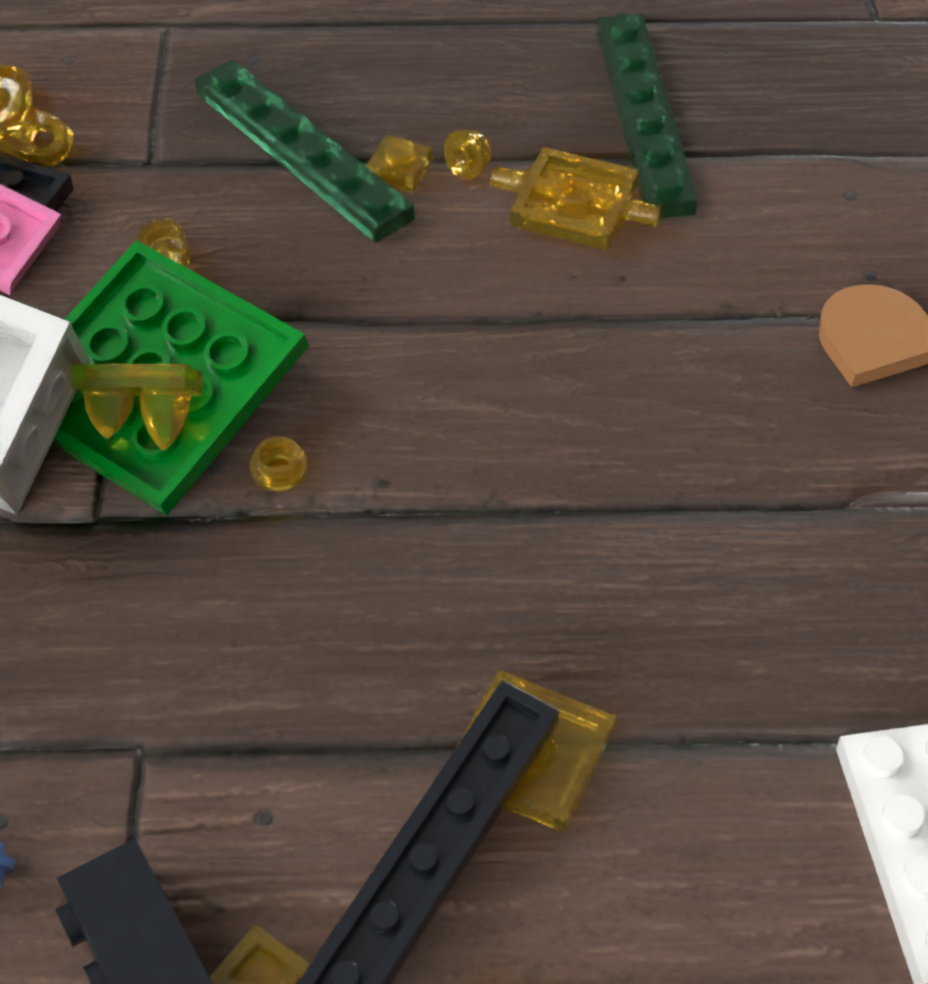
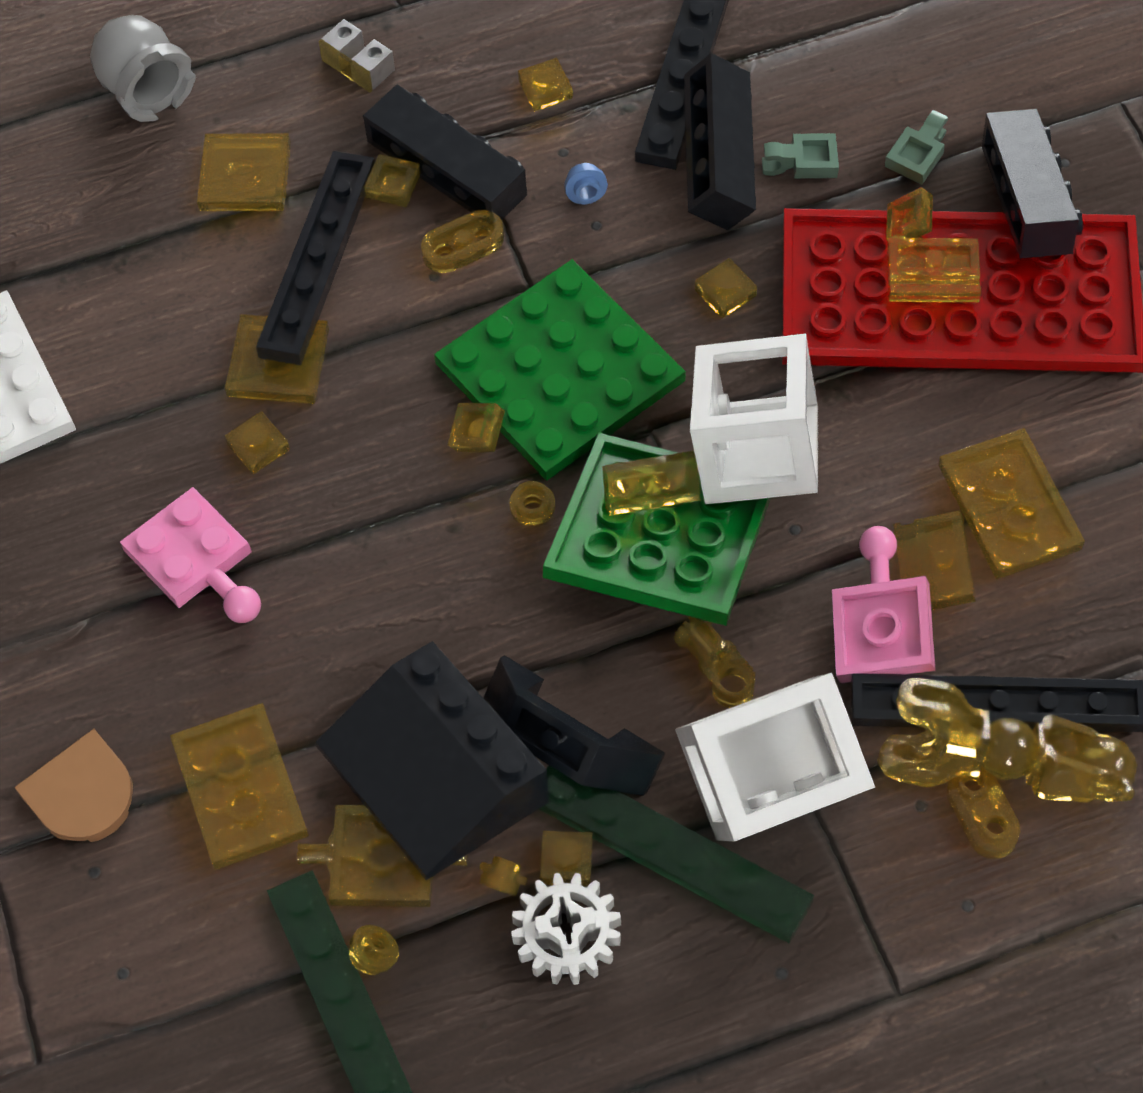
camera: 165 degrees right, 10 degrees up
(161, 626) = (560, 368): none -> green plate
(168, 127) = (775, 758): none -> white piece
(203, 829) = (461, 242): none -> clear yellow plate
(304, 558) = (476, 427): none -> clear yellow plate
(394, 261) = (615, 764): none -> black slope
(424, 103) = (545, 931): none -> white gear
(497, 232) = (434, 761): none -> black slope
(590, 643) = (257, 442): none -> clear yellow plate
(608, 134) = (373, 950): none -> clear yellow plate
(705, 288) = (239, 786): none -> clear yellow plate
(708, 533) = (189, 550): none -> bright pink plate

